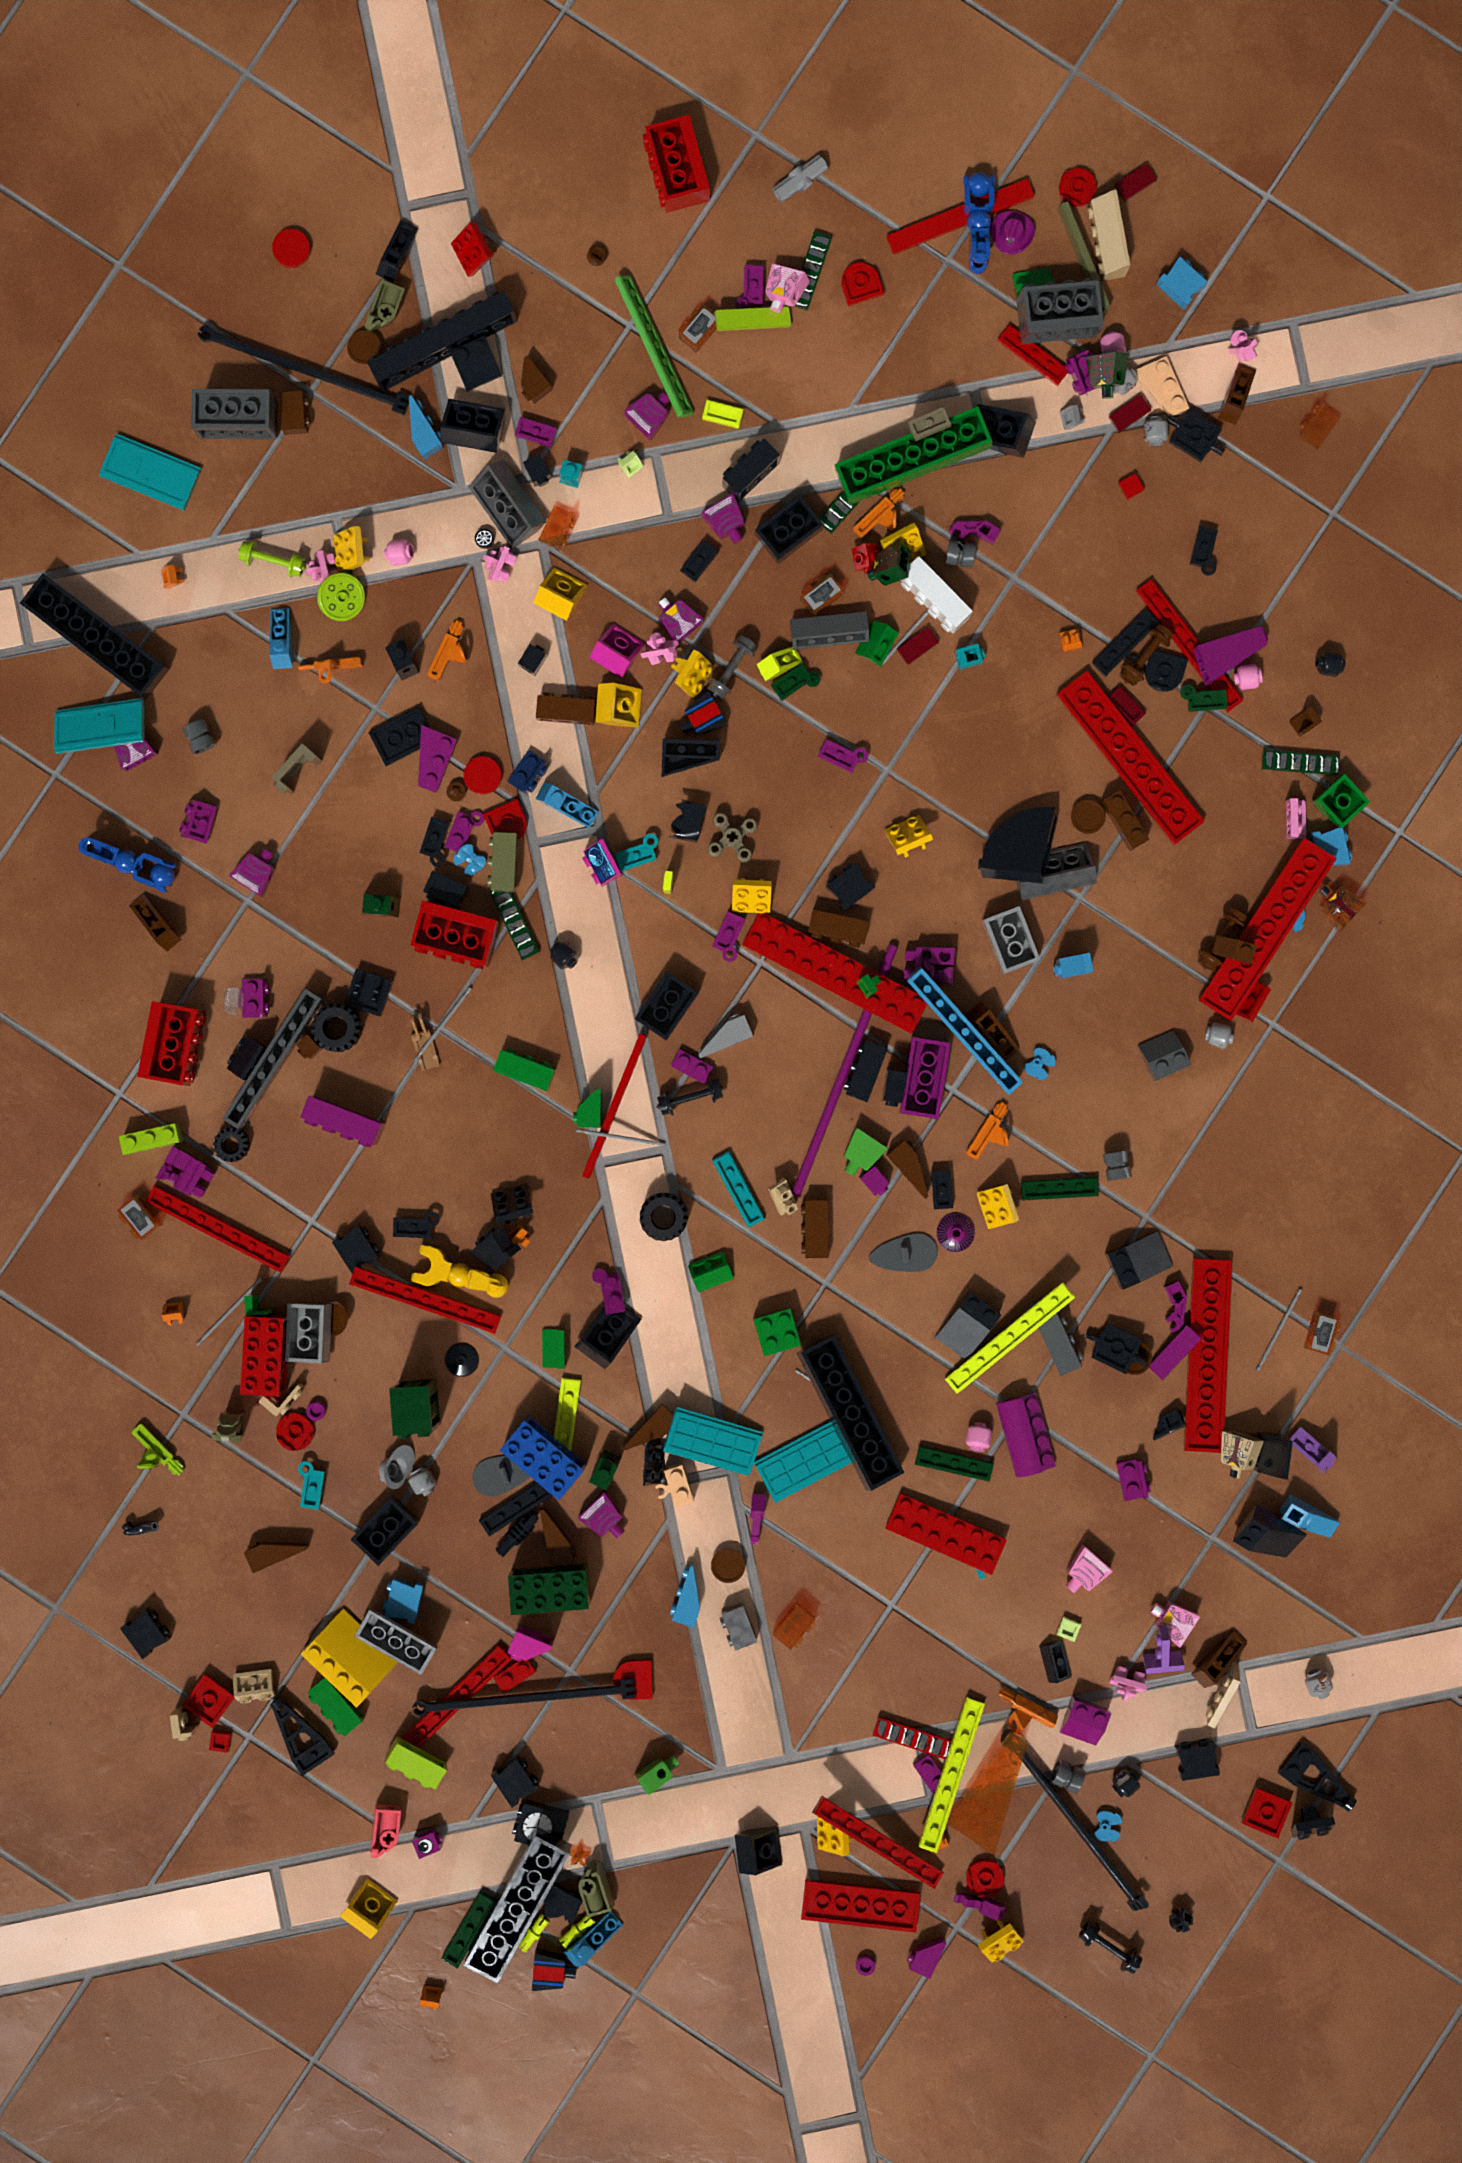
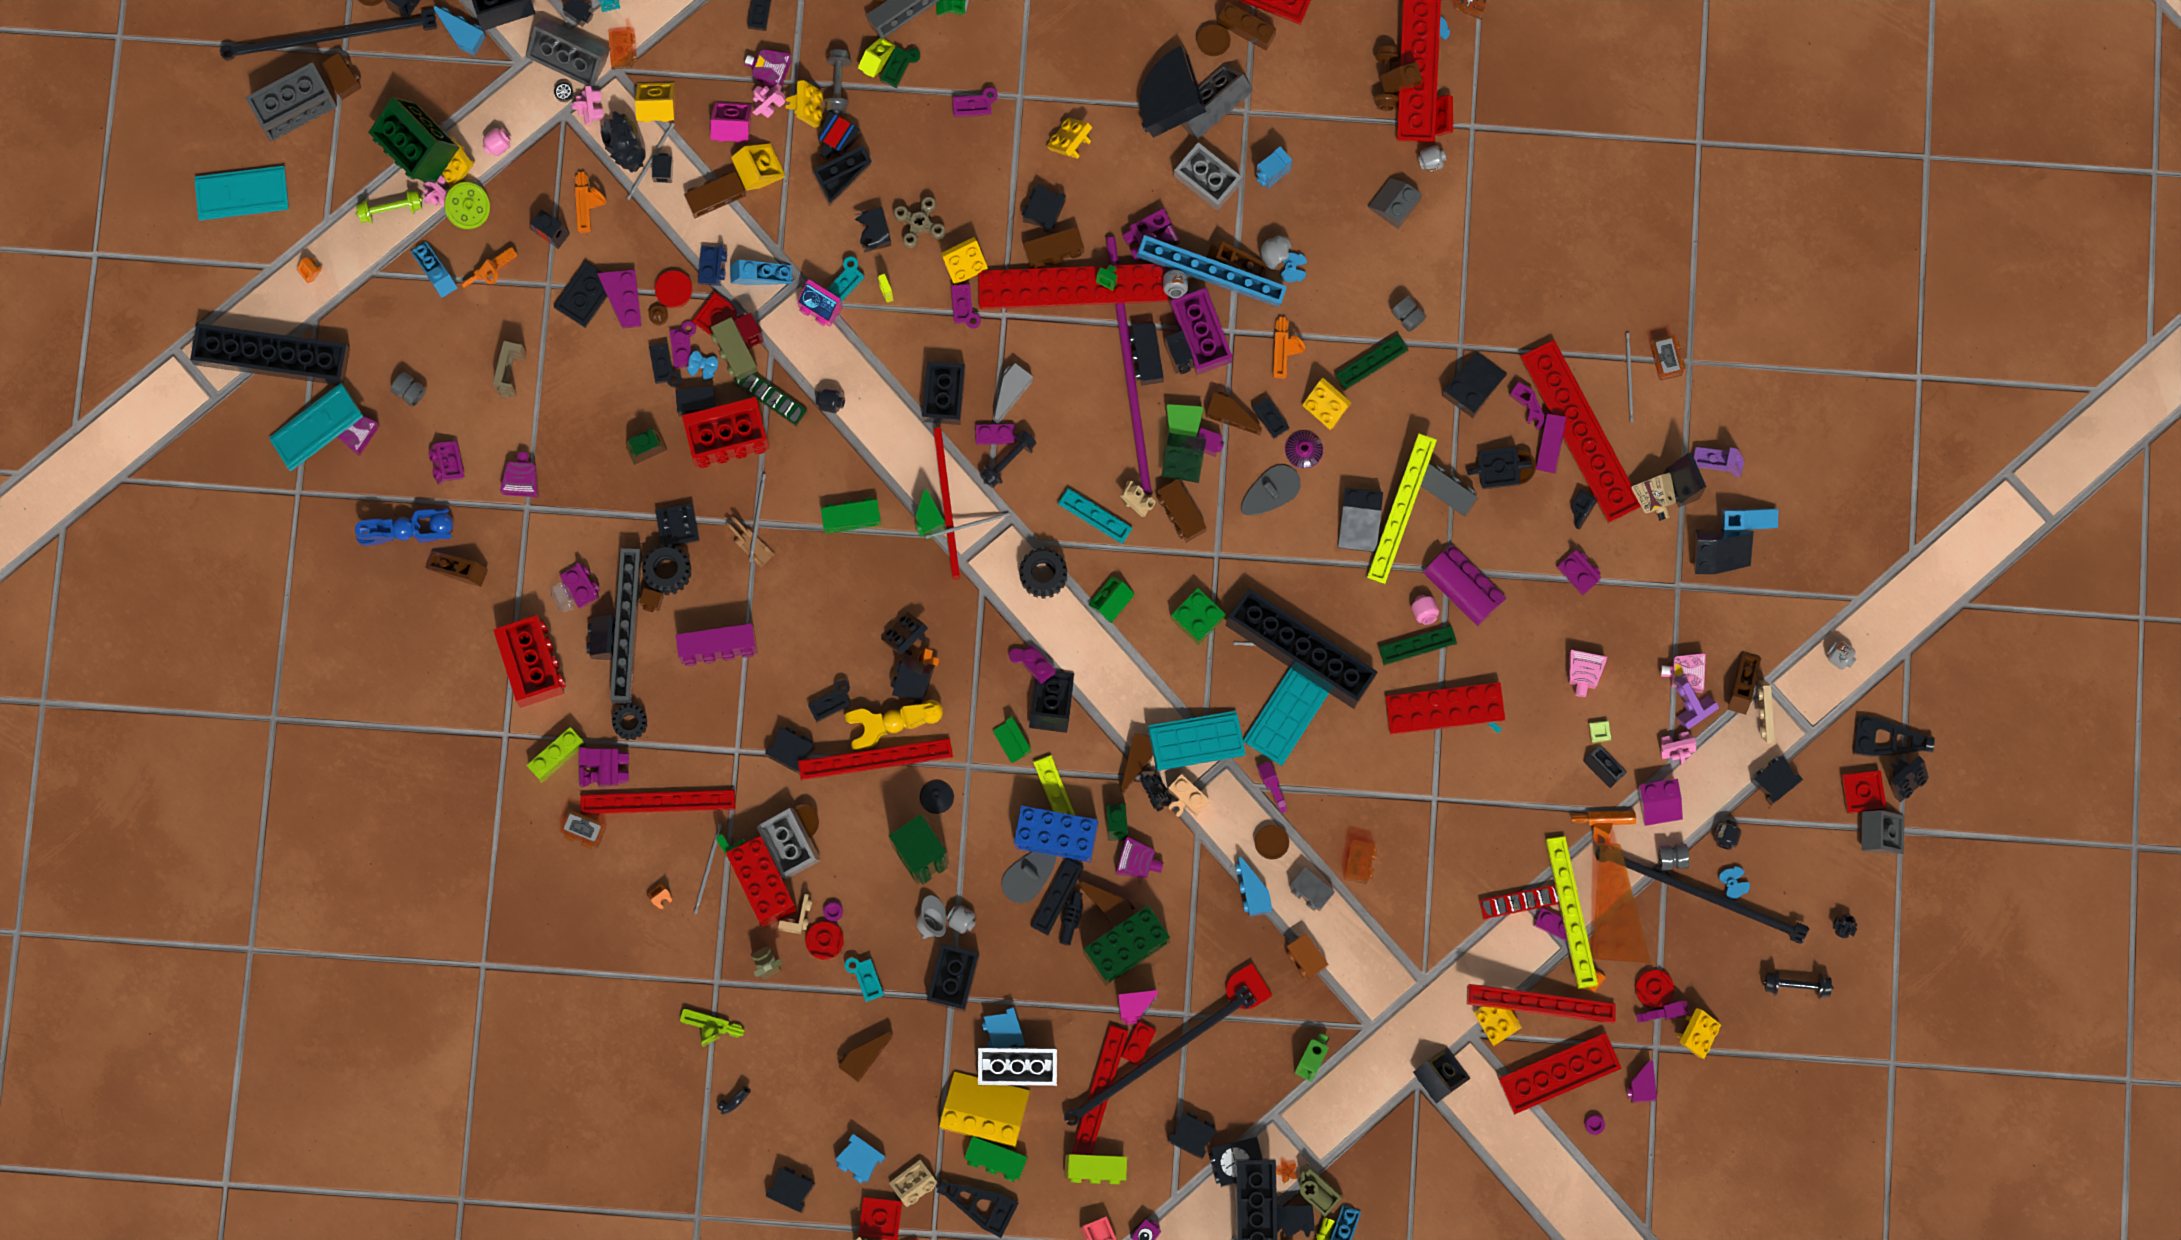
camera: 30 degrees left, 10 degrees down
(219, 1639) = (859, 1159): none -> dark azure hips
(322, 512) = (413, 140): none -> dark green brick
(510, 617) = (623, 142): none -> black head
(525, 852) = (748, 330): none -> dark red brick
(526, 645) = (650, 161): none -> light grey piece
(701, 1682) = (1306, 956): none -> dark orange brick
(844, 1185) = (1183, 457): none -> clear green brick
(925, 1024) = (1175, 283): none -> light grey head
(1032, 1042) = (1275, 251): none -> light grey hair
(1261, 1857) = (1882, 832): none -> dark grey slope

